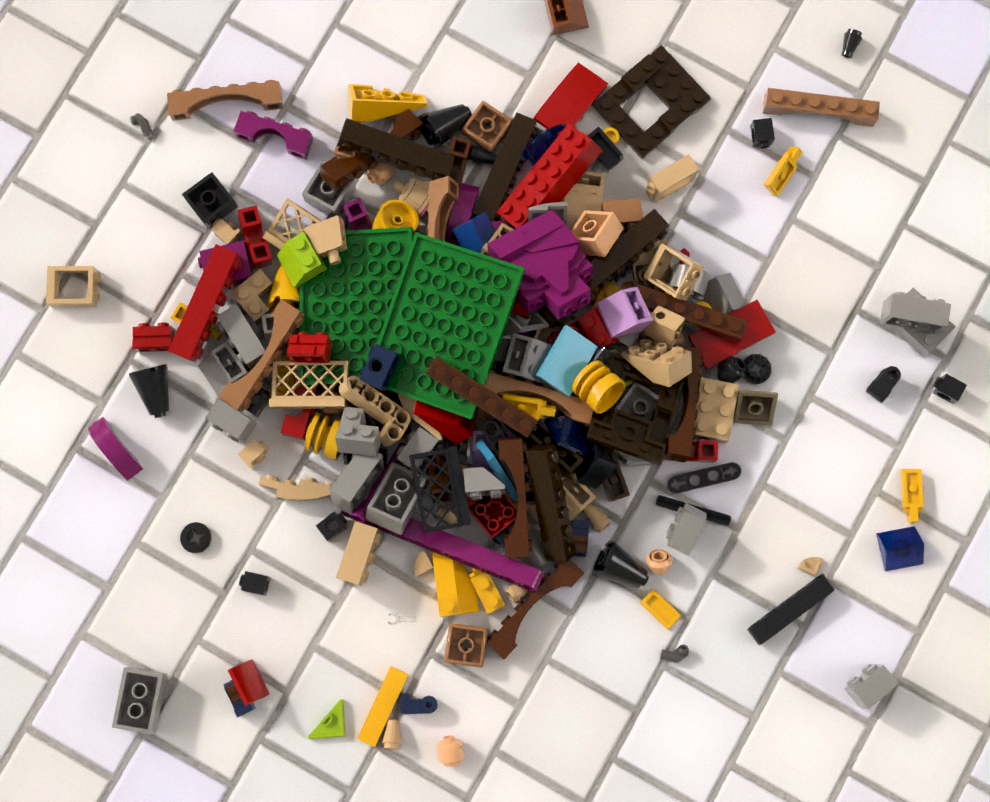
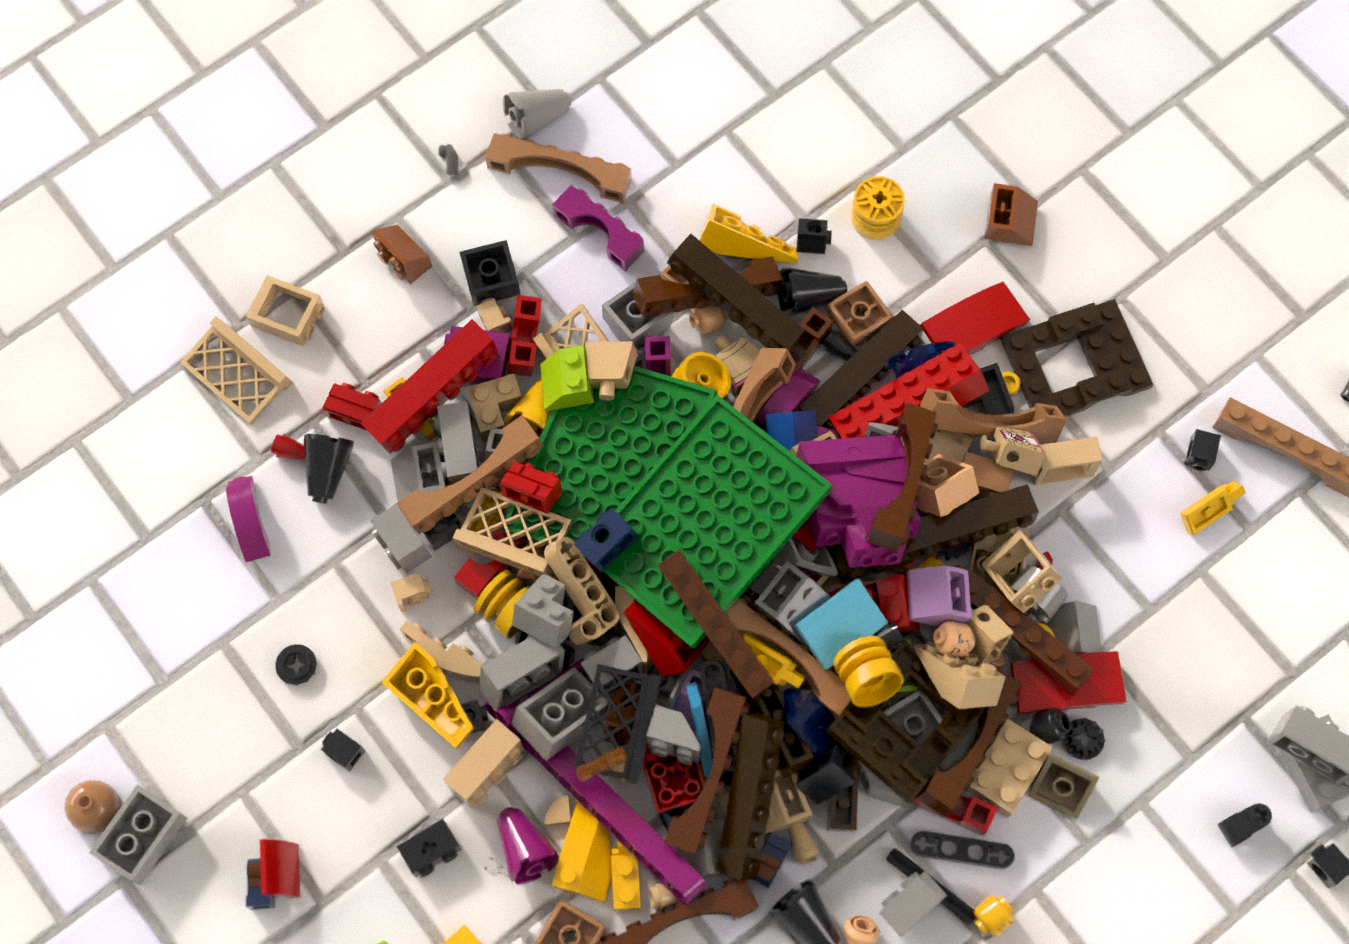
camera: 25 degrees right, 10 degrees down
(63, 330) = (253, 359): none -> tan fence
(97, 693) = (91, 806): none -> medium nougat cylinder
(120, 386) = (287, 448): none -> red cone
(139, 210) = (401, 253): none -> dark orange slope
(188, 63) = (534, 109): none -> light grey cone
(296, 520) = (426, 691): none -> yellow wedge
(334, 630) = (414, 849): none -> black brick
(409, 598) = (524, 847): none -> magenta cone
(430, 81) = (813, 236): none -> black brick
(441, 523) = (601, 764): none -> clear orange axle
(464, 51) = (875, 219): none -> yellow wheel
(564, 203) = (890, 524): none -> reddish brown arch
(635, 186) = (1014, 449): none -> tan torso
(642, 160) = (1042, 420): none -> medium nougat arch
(646, 338) = (954, 638): none -> light nougat head
(742, 513) = (993, 915): none -> yellow head

